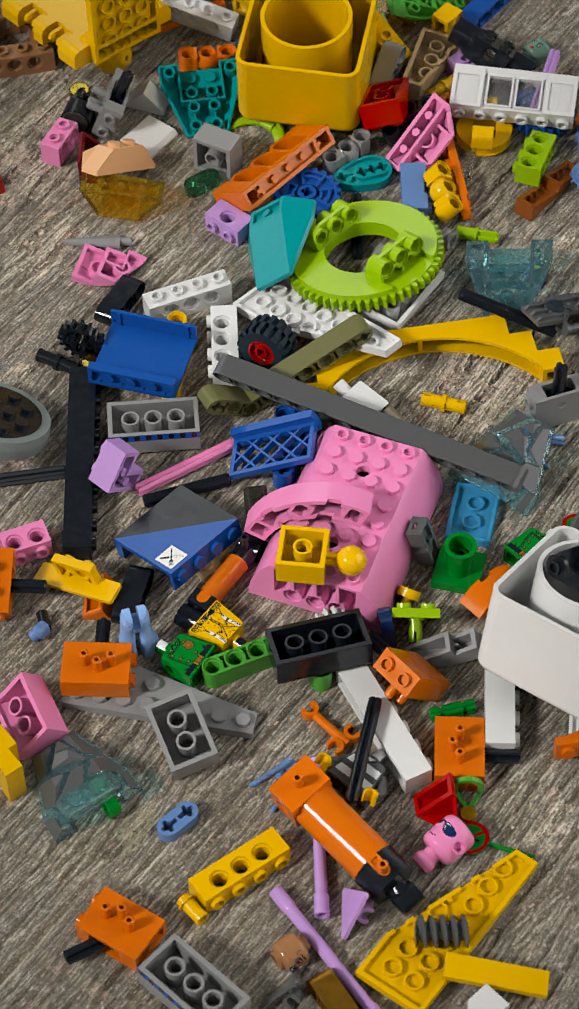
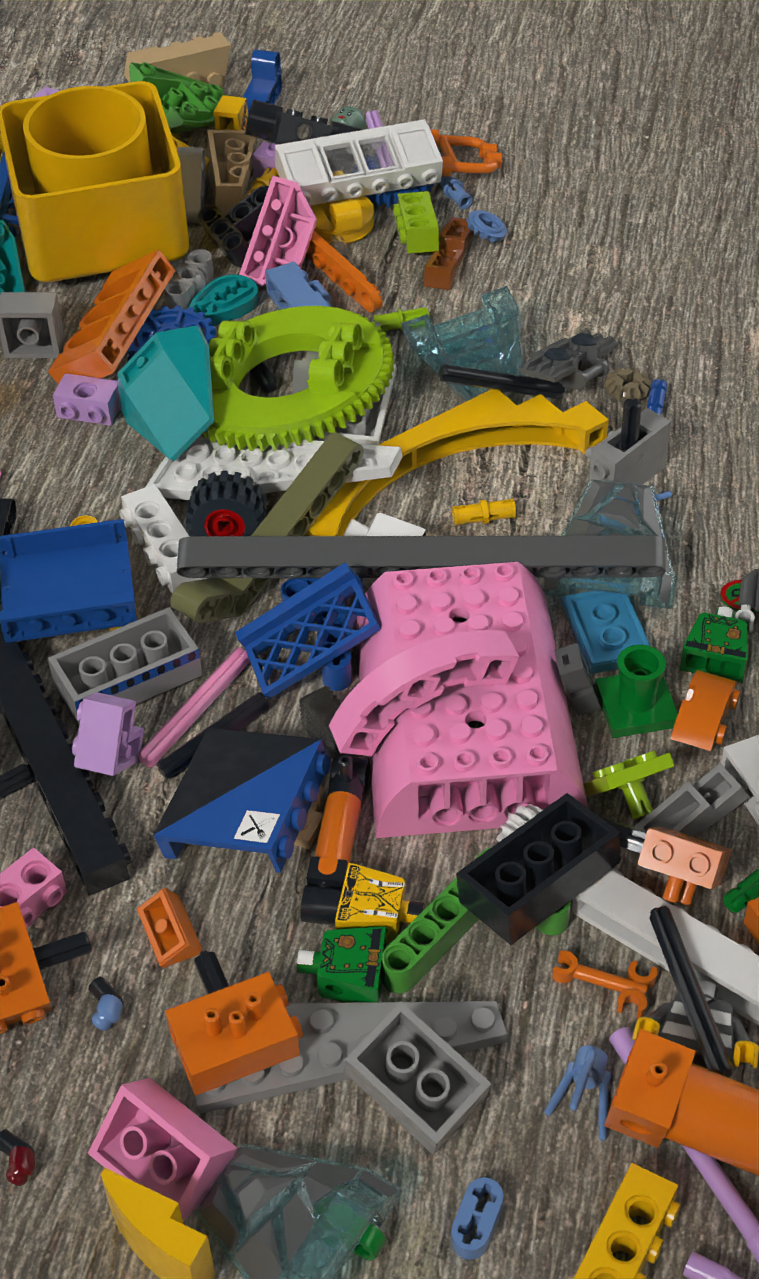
camera: 25 degrees left, 5 degrees down
(78, 578) = (130, 910): yellow bracket -> none
(133, 591) = (220, 906): black beam -> none
(139, 623) = (262, 949): light blue piece -> none
(189, 296) = (86, 493): white brick -> none
(201, 182) = (25, 369): clear green beam -> none
(275, 129) = (84, 286): lime piece -> none
(305, 556) = (468, 749): yellow brick -> none
(385, 104) = (214, 214): red slope -> none
(387, 626) = (603, 800): dark blue beam -> none
(408, 594) = (596, 756): yellow tile -> none
(442, 191) = (335, 282): yellow piece -> none

